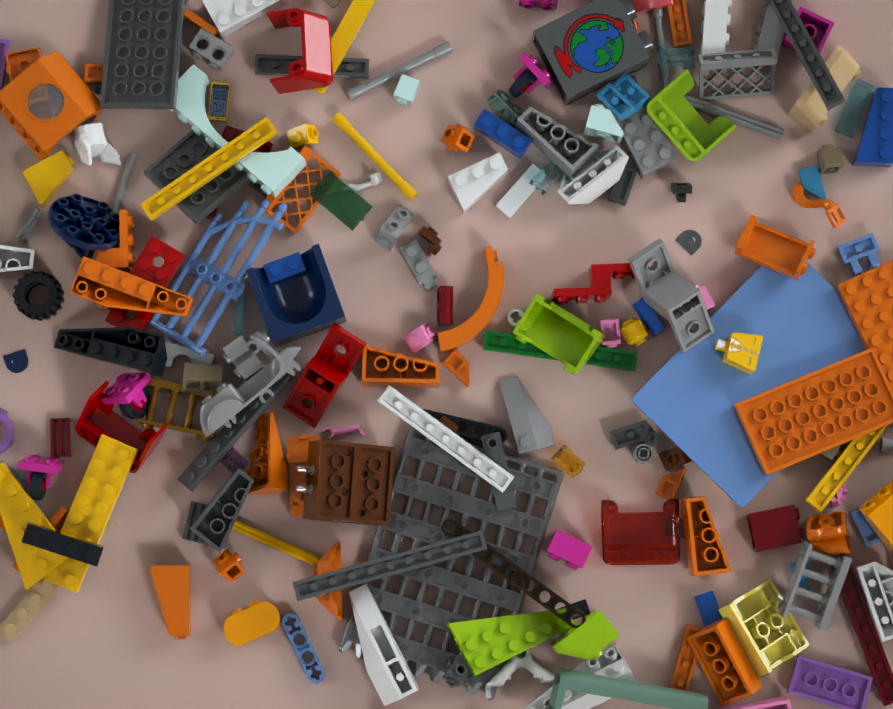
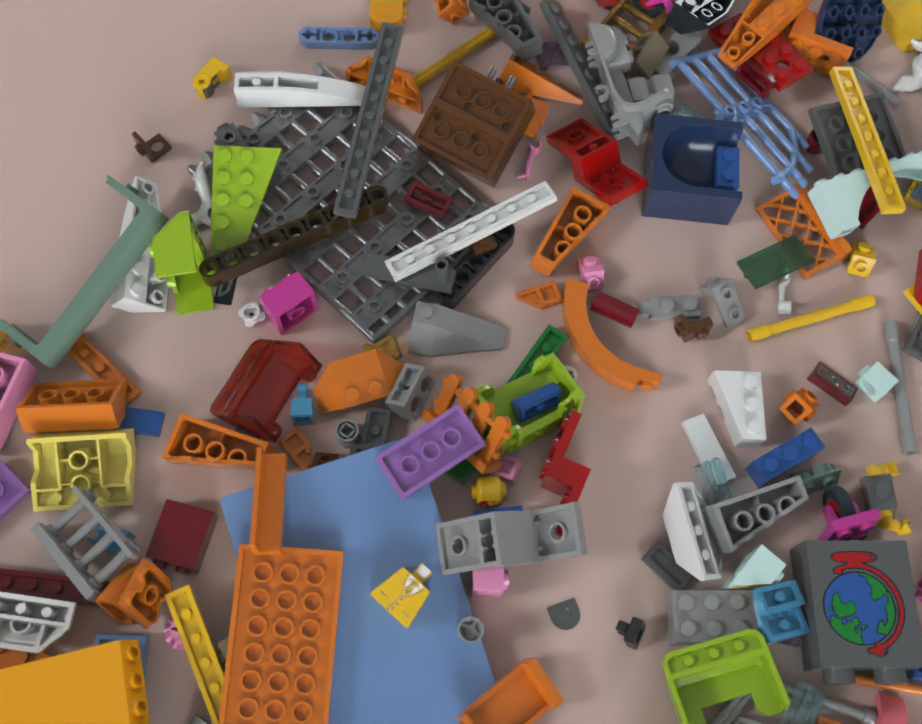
camera: 115 degrees right, 15 degrees down
(180, 276) = (758, 74): none -> dark red tile
(419, 489) = (426, 208): none -> dark red tile
(421, 120) = (832, 384): none -> dark red slope
(499, 58) = (879, 493): none -> torso
(553, 328) = (536, 402): none -> blue brick
(590, 423) = (410, 391): none -> light grey brick
(591, 576) = (249, 308): none -> white plate
(601, 464) = (356, 380): none -> orange wedge
(608, 369) = (486, 458): none -> orange fence
(638, 379) = (429, 451): none -> medium lavender plate
(641, 496) = (302, 407): none -> dark azure piece
(730, 469) = (268, 503): none -> orange panel
(742, 293) = (473, 627): none -> light grey wheel

